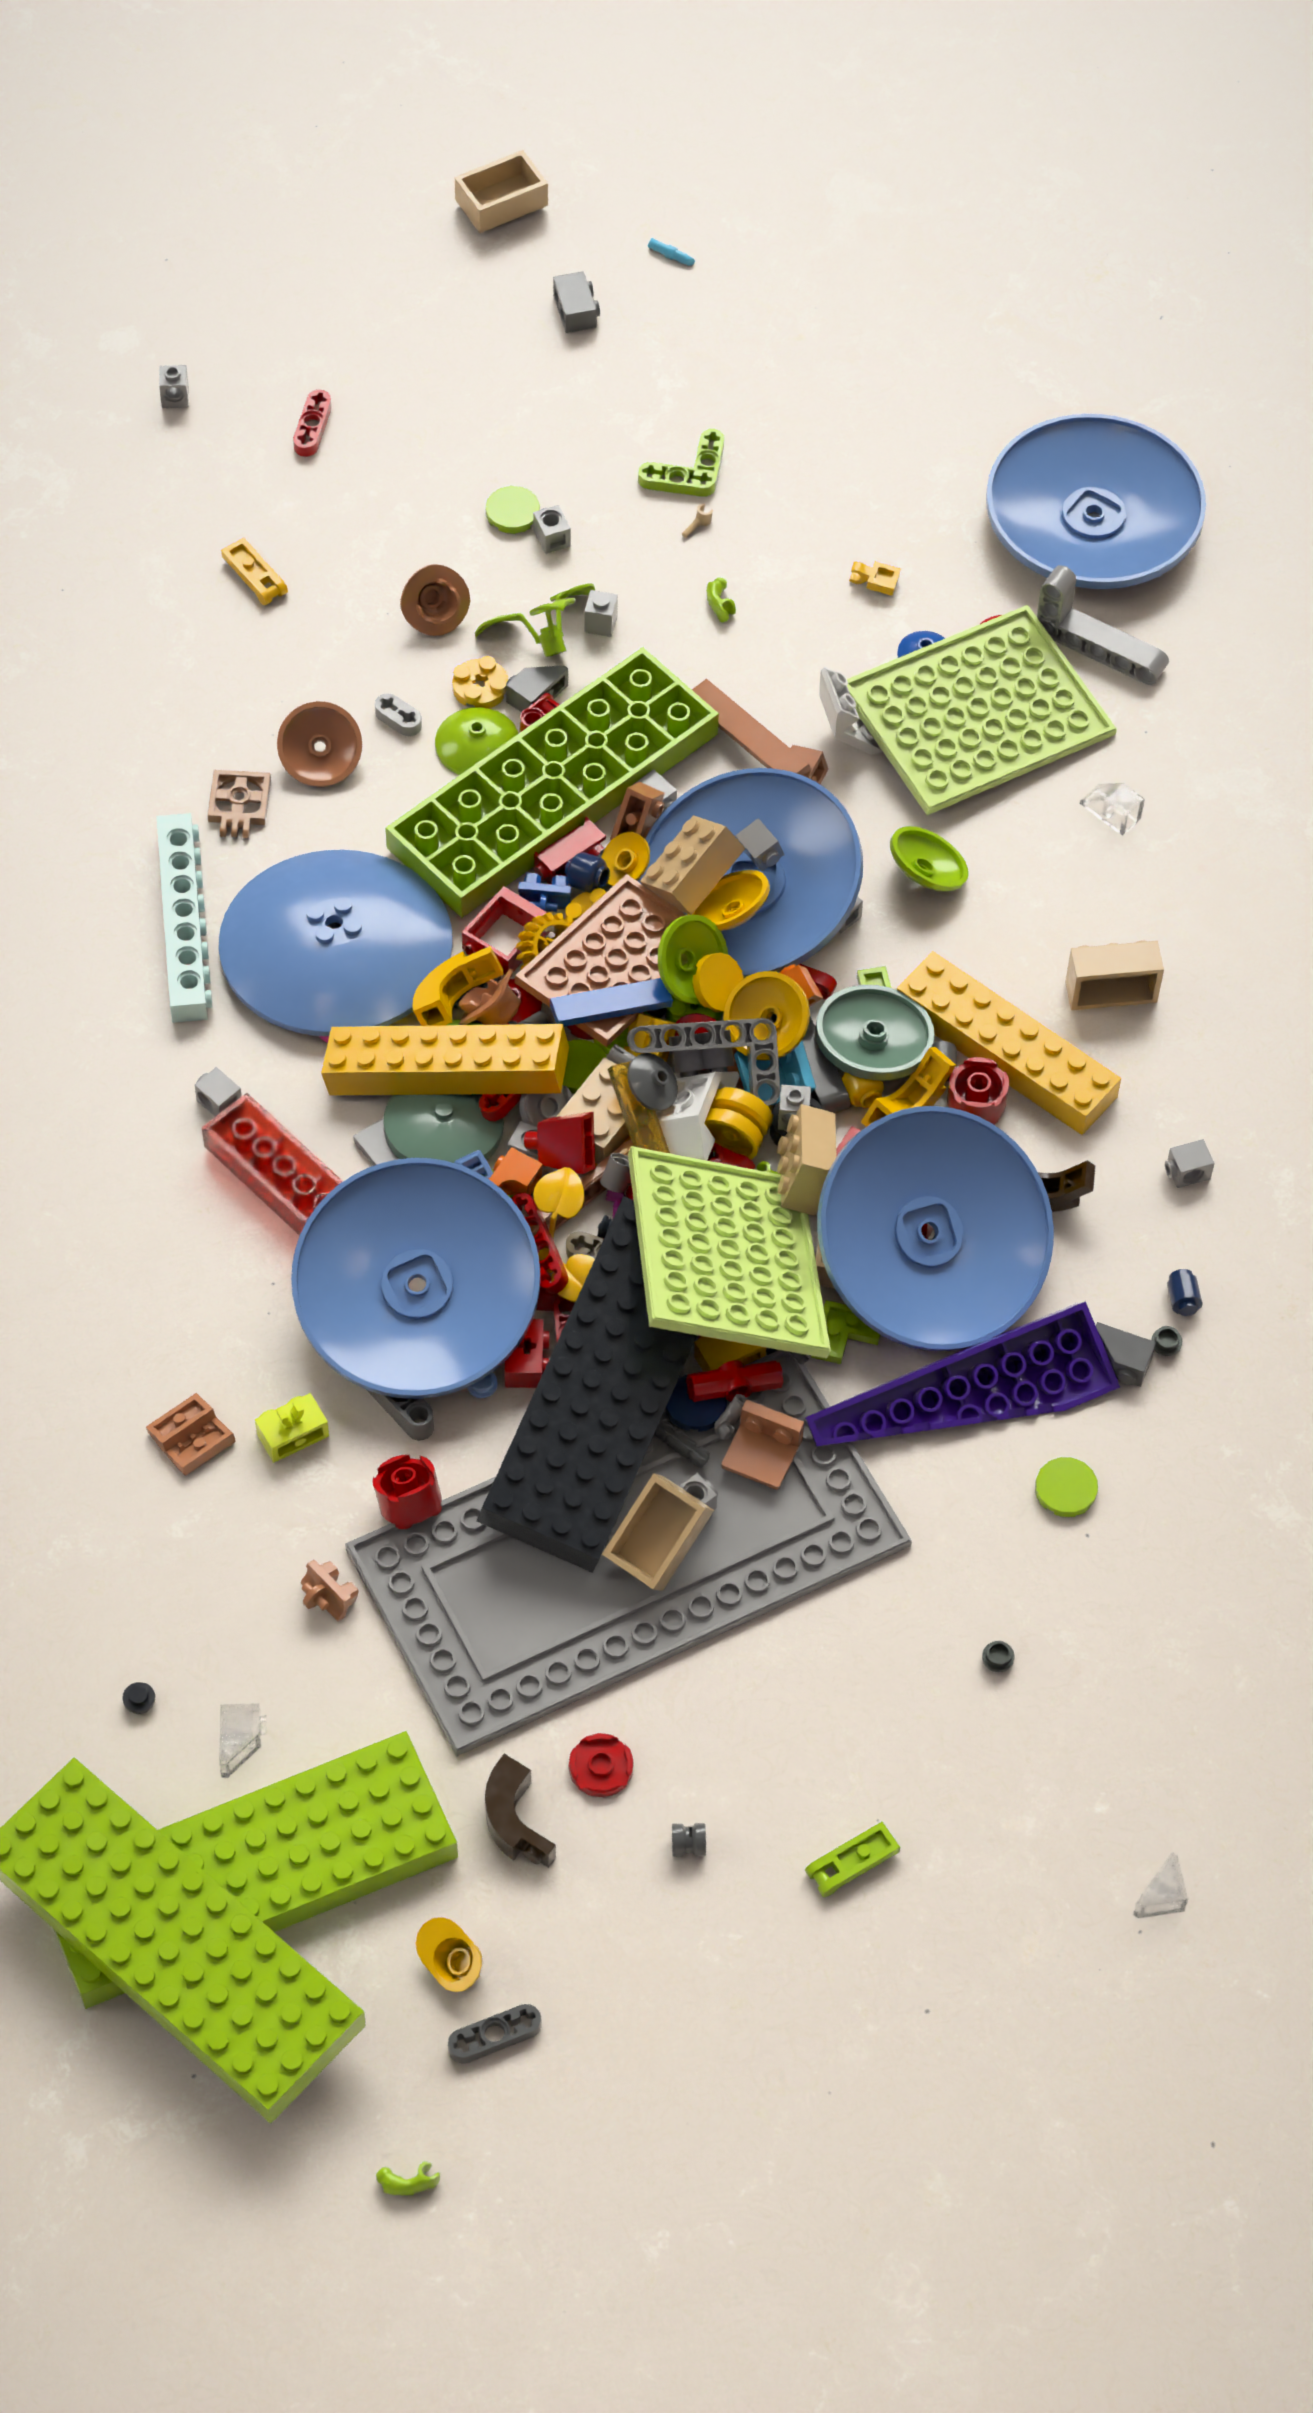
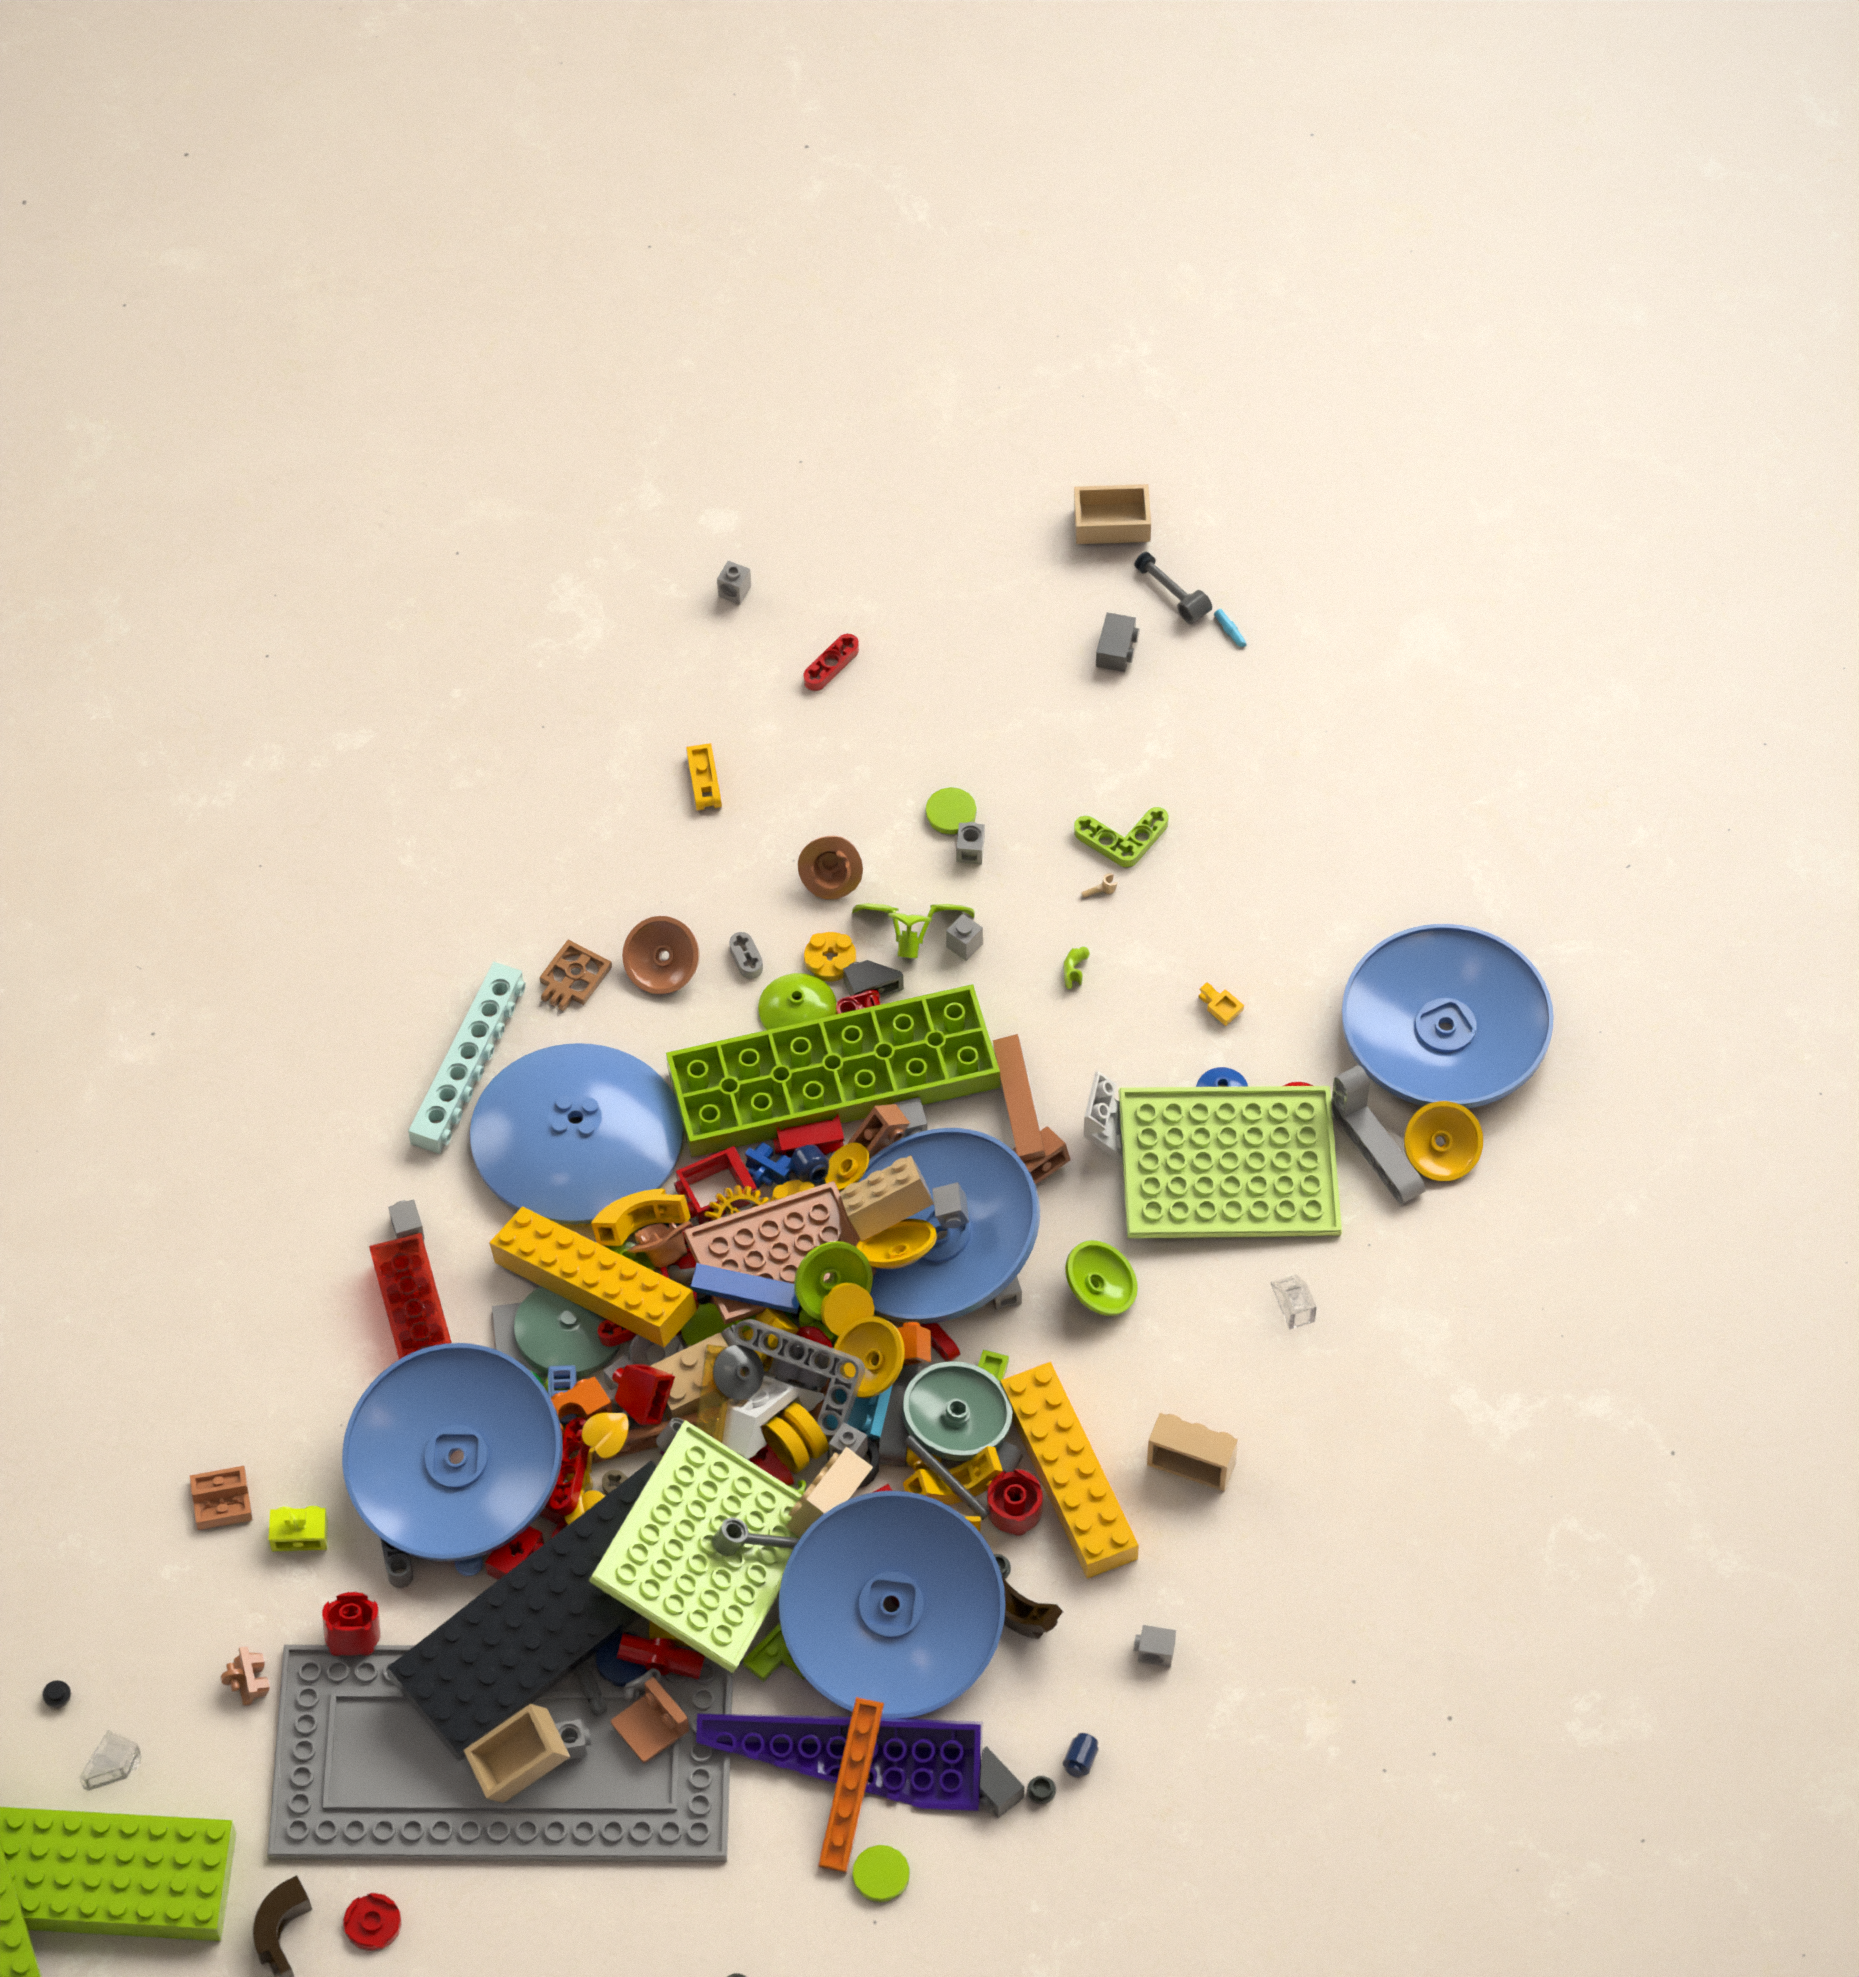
camera: 30 degrees right, 0 degrees up
(625, 244) = (1192, 605): none -> dark grey piece
(752, 1226) = (735, 1533): none -> dark grey piece
(889, 1090) = (947, 1477): none -> dark grey bar
(993, 1415) = (851, 1785): none -> orange tile
(1170, 601) = (1461, 1141): none -> yellow dish

